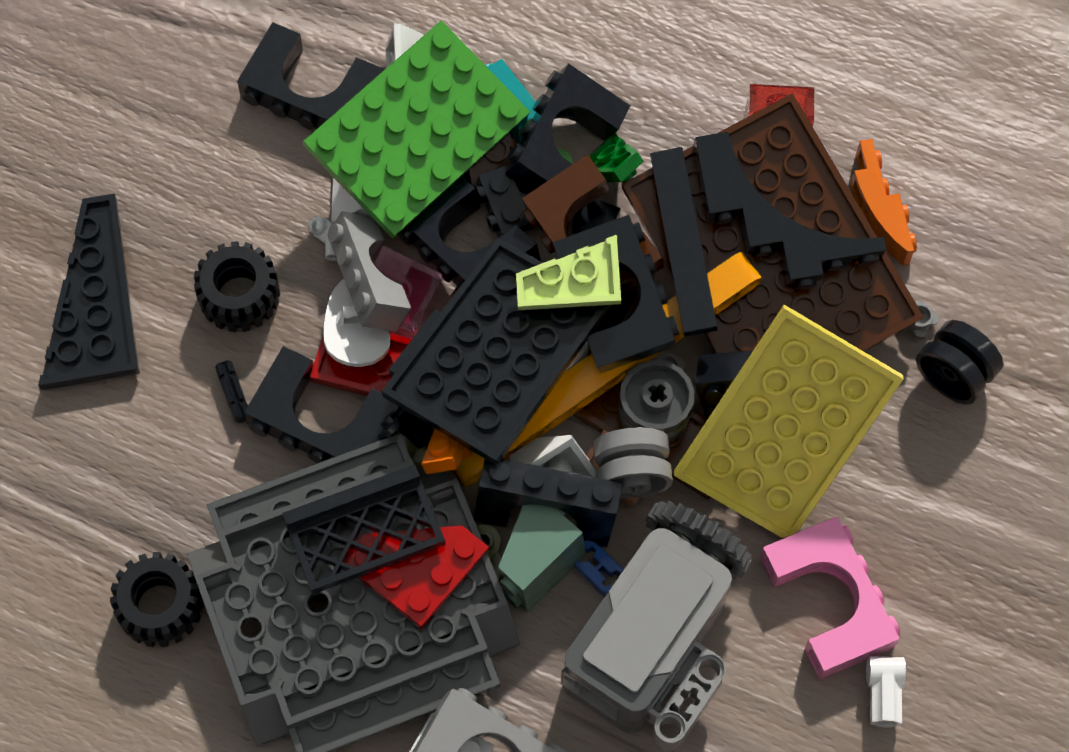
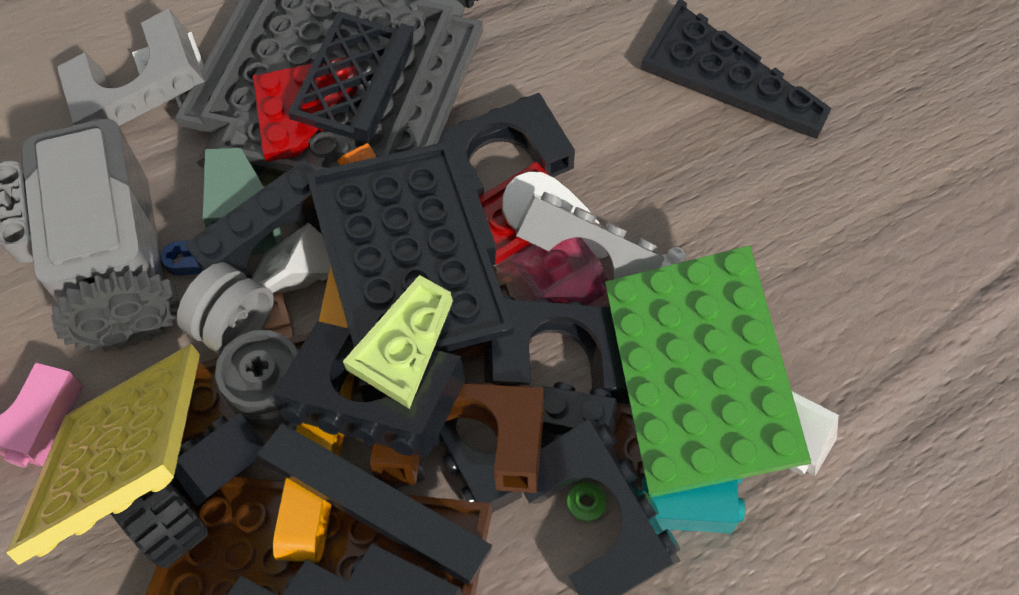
camera: 130 degrees right, 5 degrees down
(230, 264) = (664, 138): black tyre -> none
(232, 390) = (575, 114): black axle -> none
(266, 75) = (862, 309): black arch -> none
(616, 159) = (535, 533): green wing -> none

